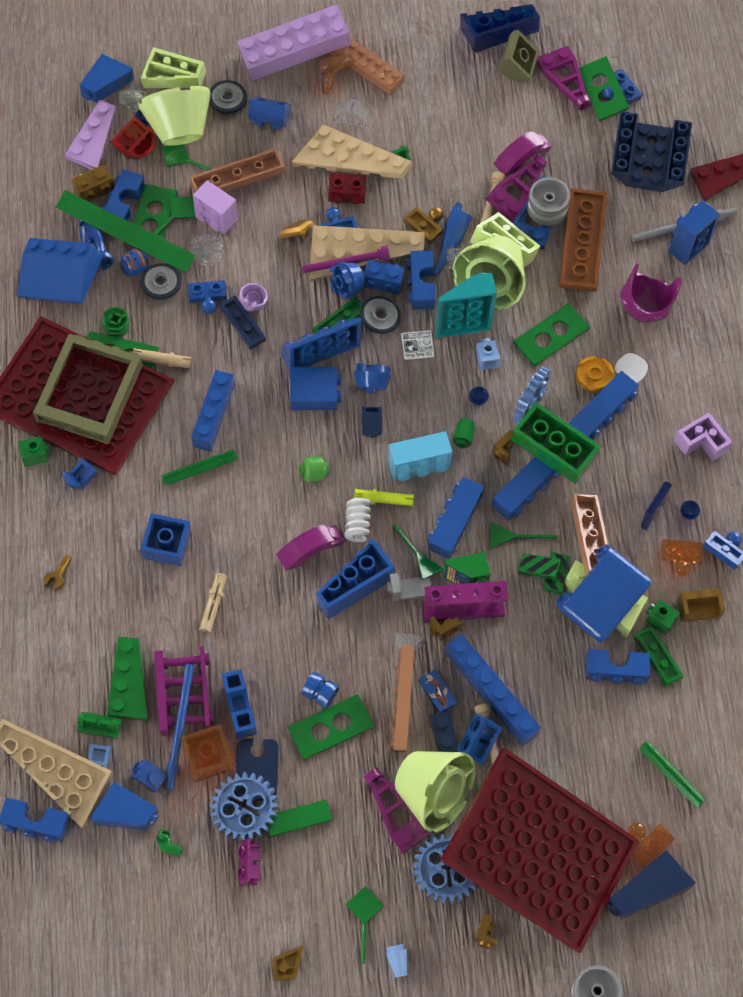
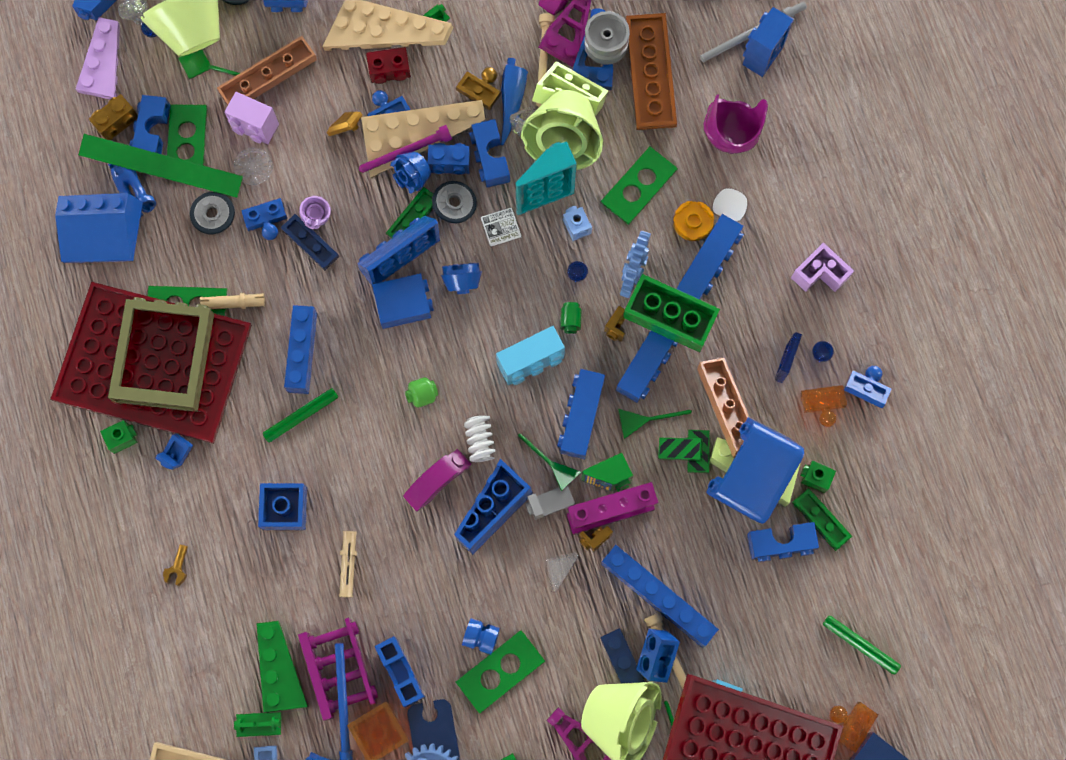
camera: 10 degrees left, 10 degrees up
(112, 328) = (182, 270): green wheel -> none
(133, 262) = (178, 198): blue head -> none
(135, 140) = (147, 56): red slope -> none
(180, 208) = (215, 124): green piece -> none
(371, 421) = (471, 326): dark blue brick -> none
(385, 497) = (502, 407): neon yellow pin -> none
(403, 695) = (570, 632): nougat piece -> none
(437, 691) = (602, 608): tile -> none
(701, 604) = (855, 454): pearl gold panel -> none

